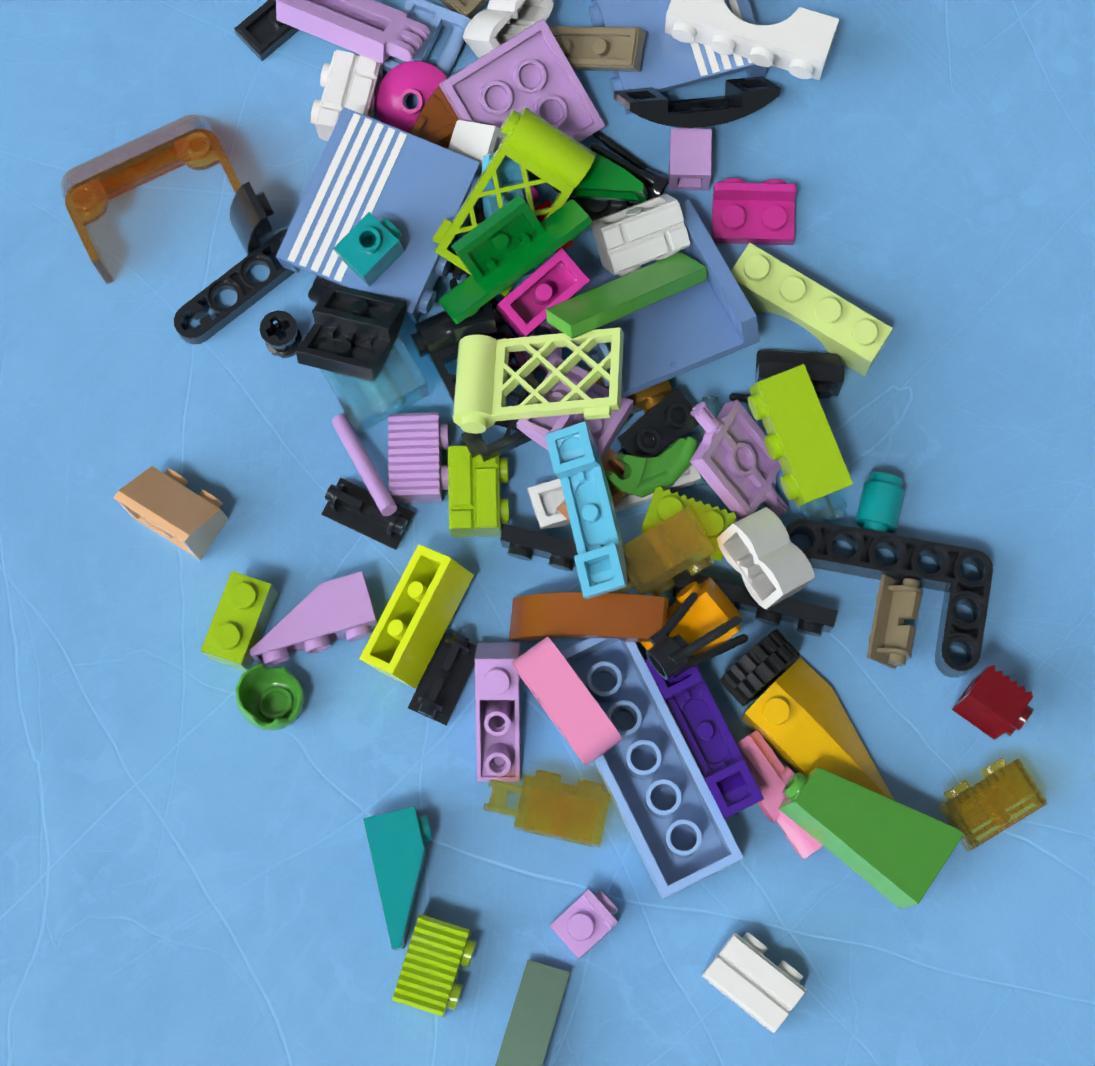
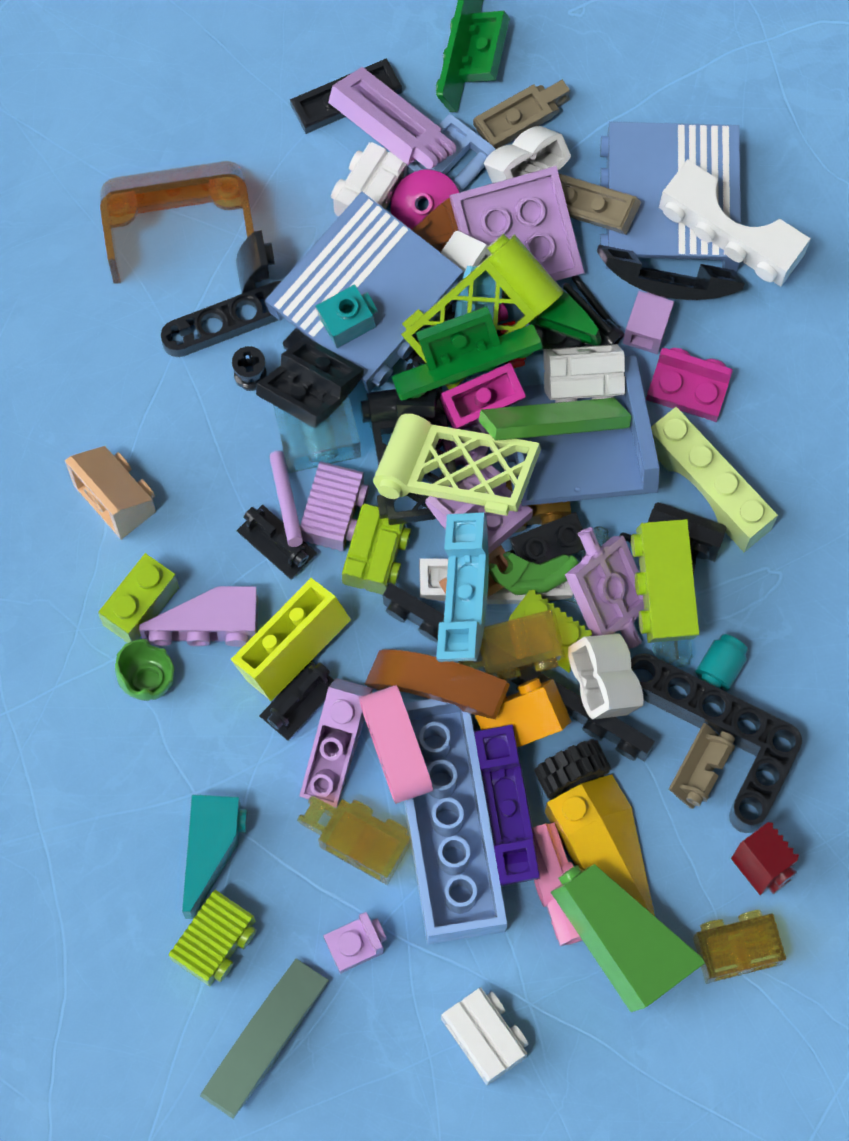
camera: 10 degrees right, 5 degrees down
(675, 656) = (496, 729): black plant -> none

